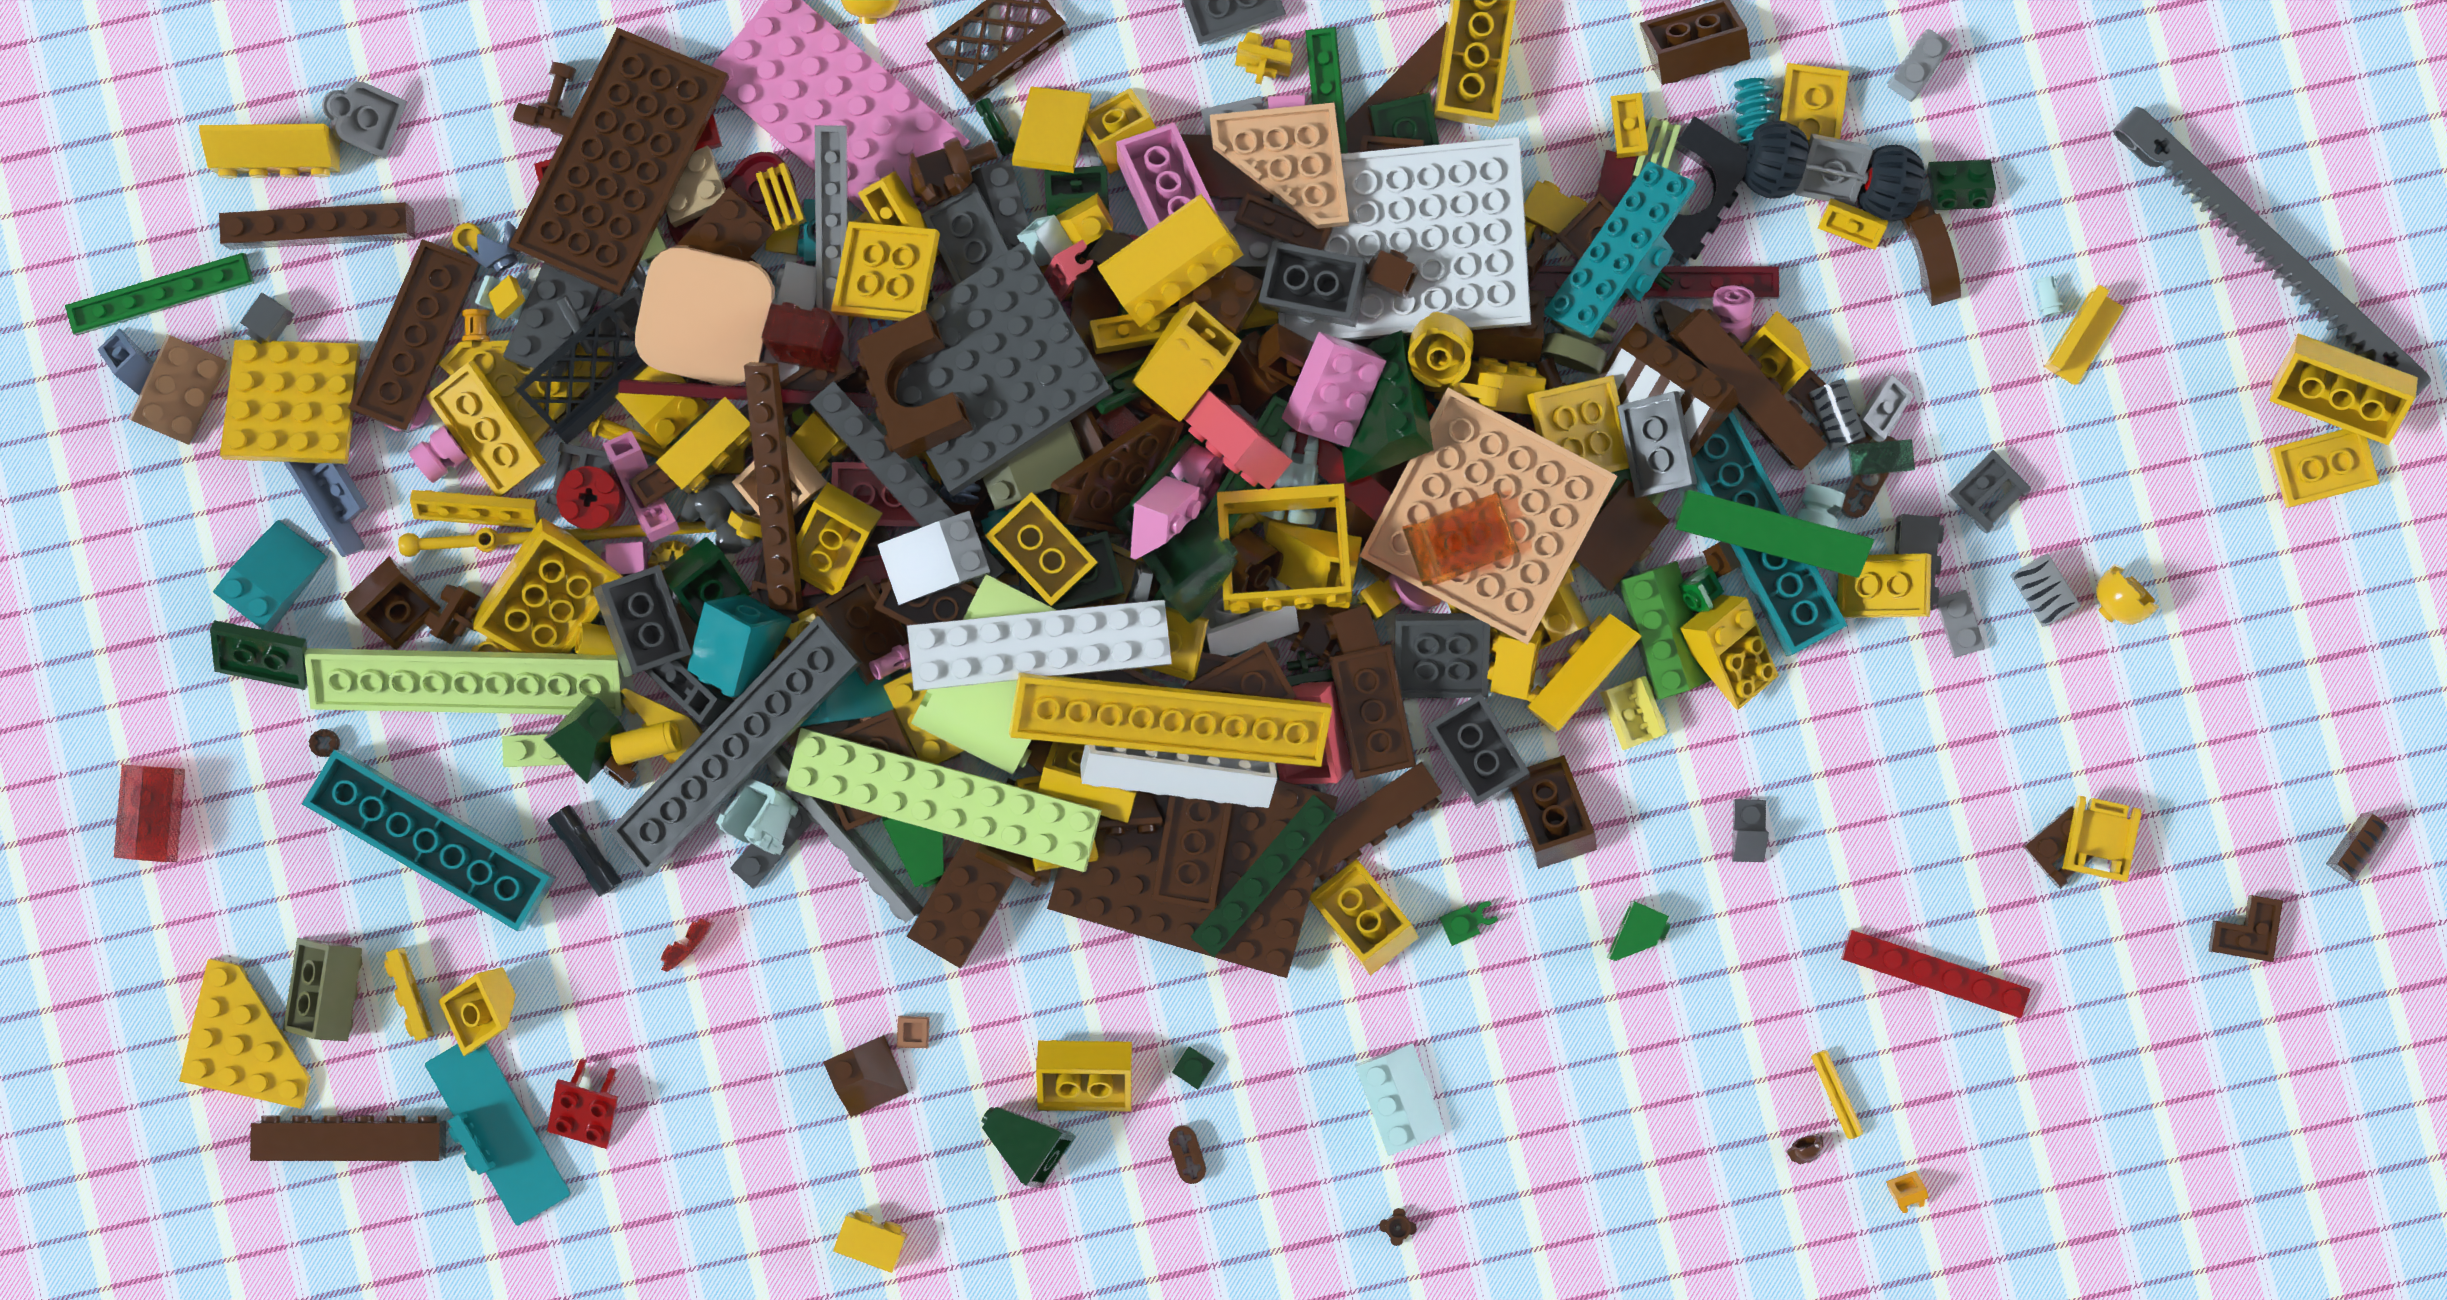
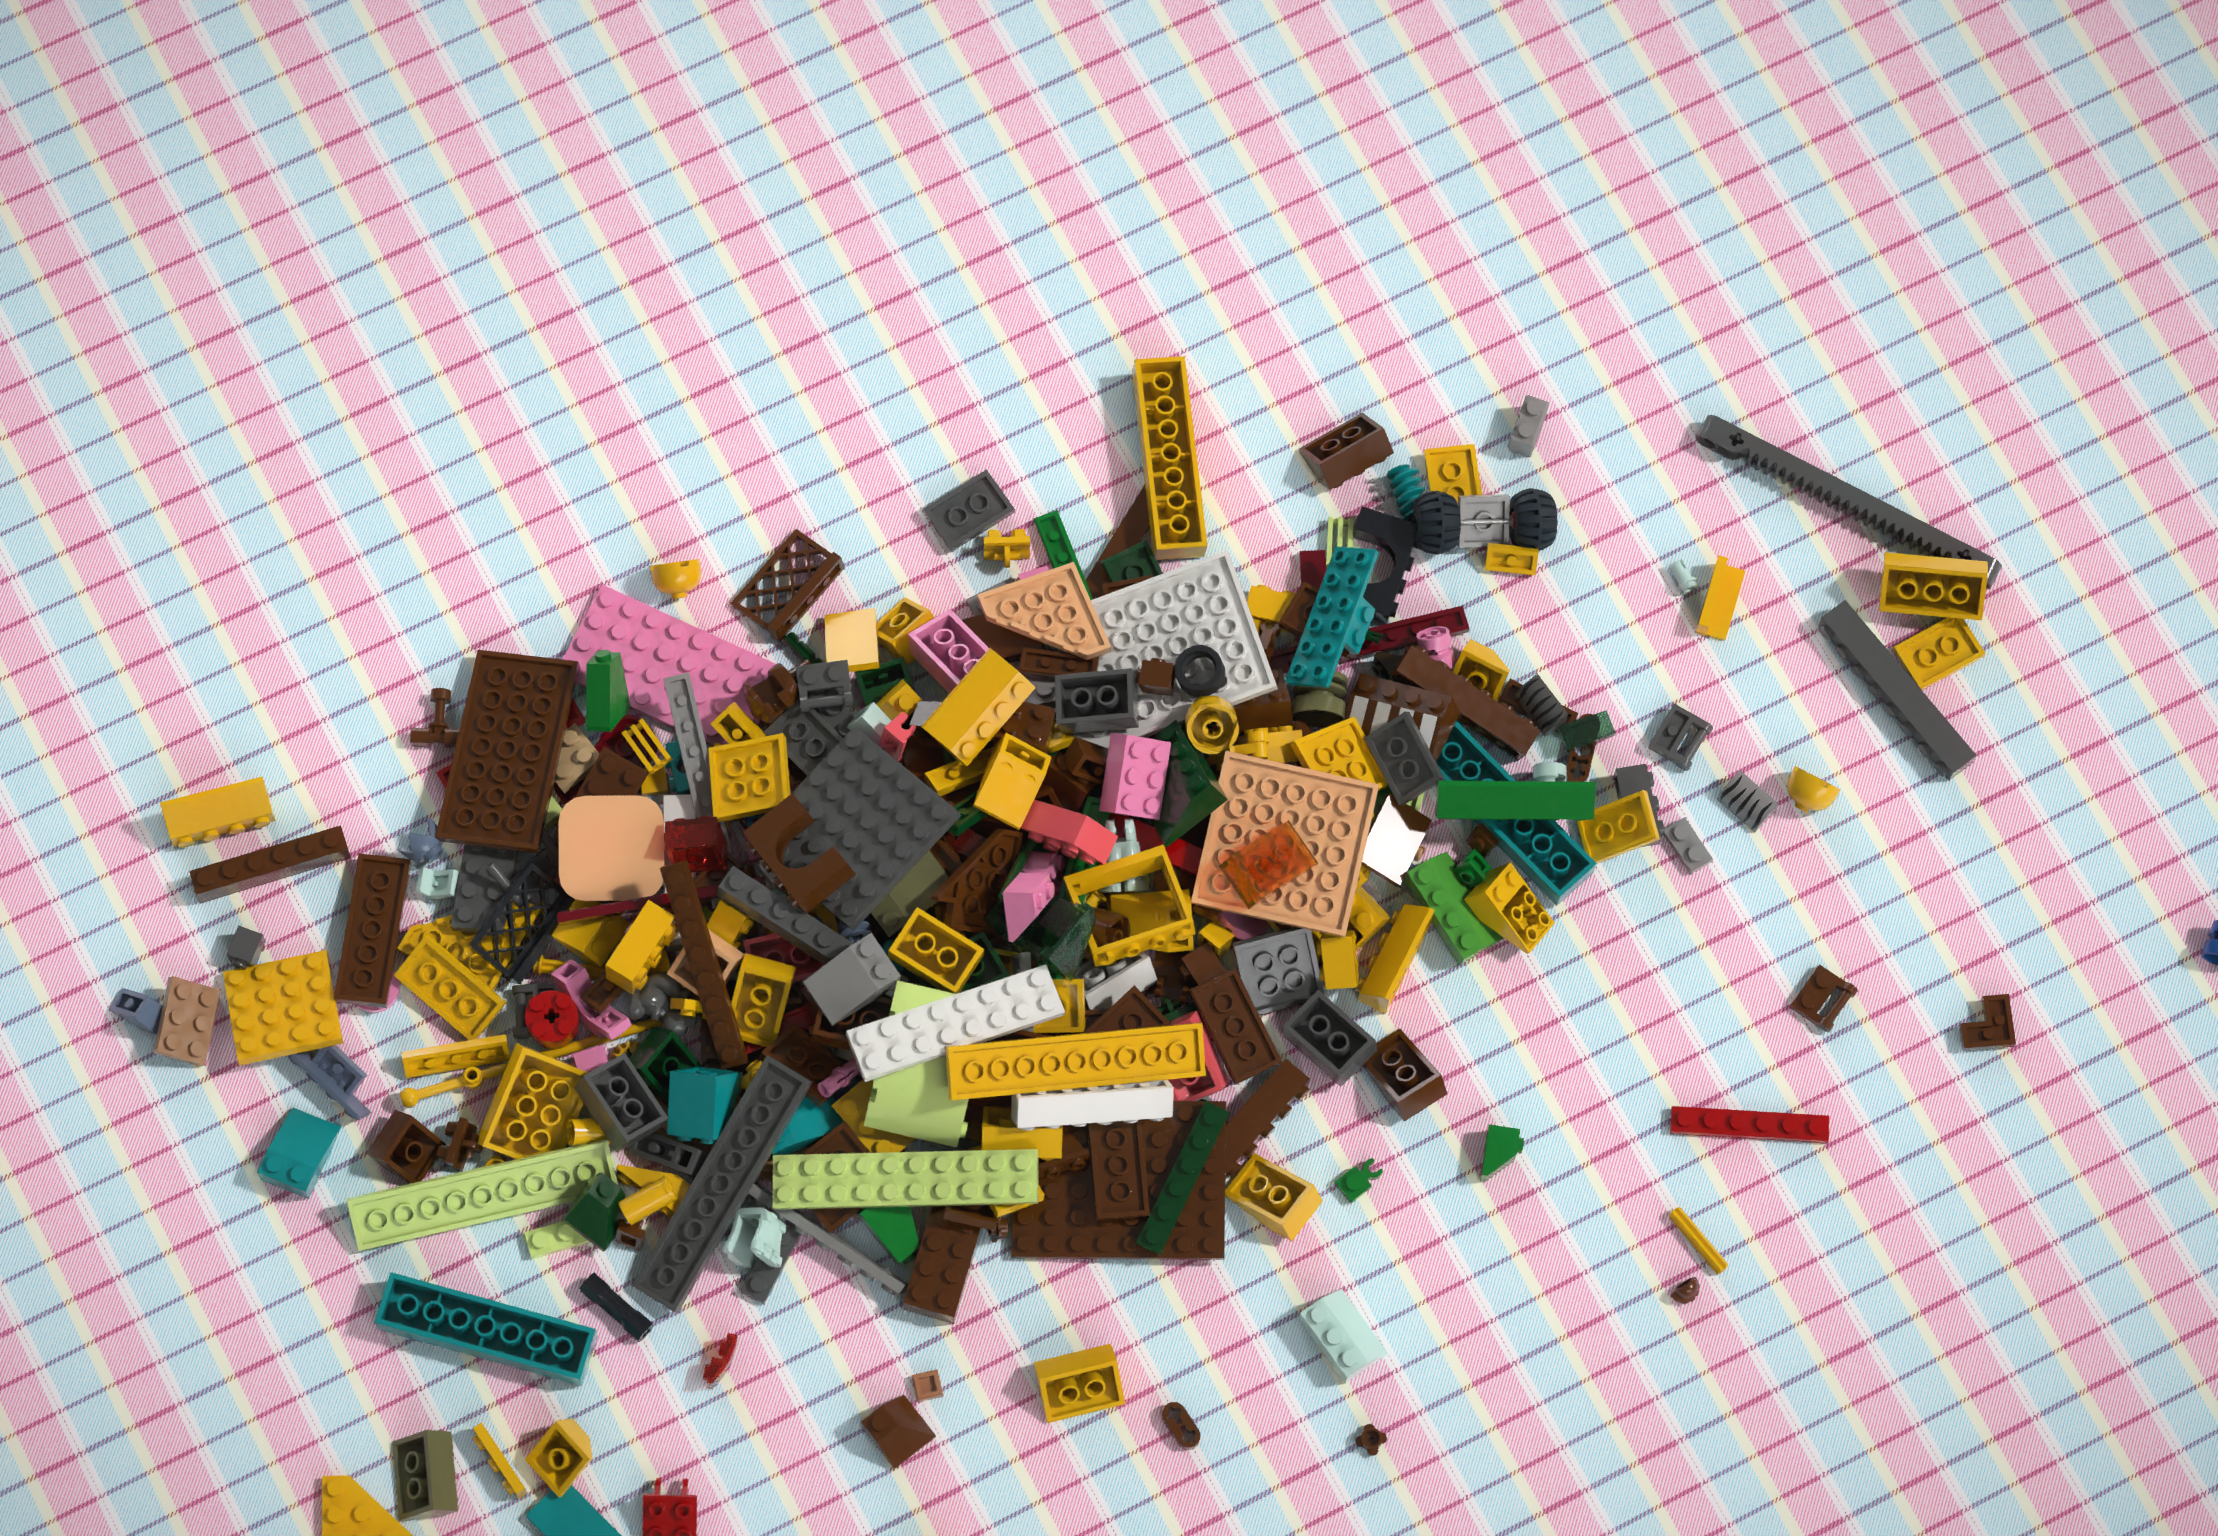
camera: 20 degrees left, 15 degrees down
(149, 813) = (242, 1369): clear red slope -> none
(159, 294) = (150, 952): green tile -> none
(259, 654) = (307, 1215): dark green plate -> none
(314, 742) = (375, 1269): reddish brown bush -> none
(364, 116) = (289, 768): light grey plate -> none
(438, 454) = (415, 1019): bright pink wheel -> none
(466, 235) = (392, 843): yellow tile -> none
(476, 325) = (419, 910): light orange bush -> none
(506, 297) = (441, 879): yellow tile -> none
(748, 120) = (605, 691): none -> green slope
(1003, 169) = (824, 677): none -> dark grey plate
(1026, 1144) = (1047, 1446): dark green slope -> none
(1193, 1067) = (1166, 1354): dark green plate -> none
(1432, 259) = (1191, 654): none -> black tyre
(1629, 125) = (1312, 527): yellow plate -> none
(1634, 712) = (1446, 978): light yellow bracket -> none
(1749, 831) = (1566, 1050): dark grey slope -> none
(1885, 408) = (1578, 692): light grey plate -> none
(1907, 1190) = (1777, 1300): light orange tile -> none
(1934, 254) = (1583, 565): reddish brown arch -> none
(1961, 184) = (1588, 509): dark green bracket -> none
(2102, 833) = (1849, 977): yellow container -> none
(2260, 501) = (1896, 690): none -> dark grey brick
(2358, 846) = (2057, 937): brick -> none

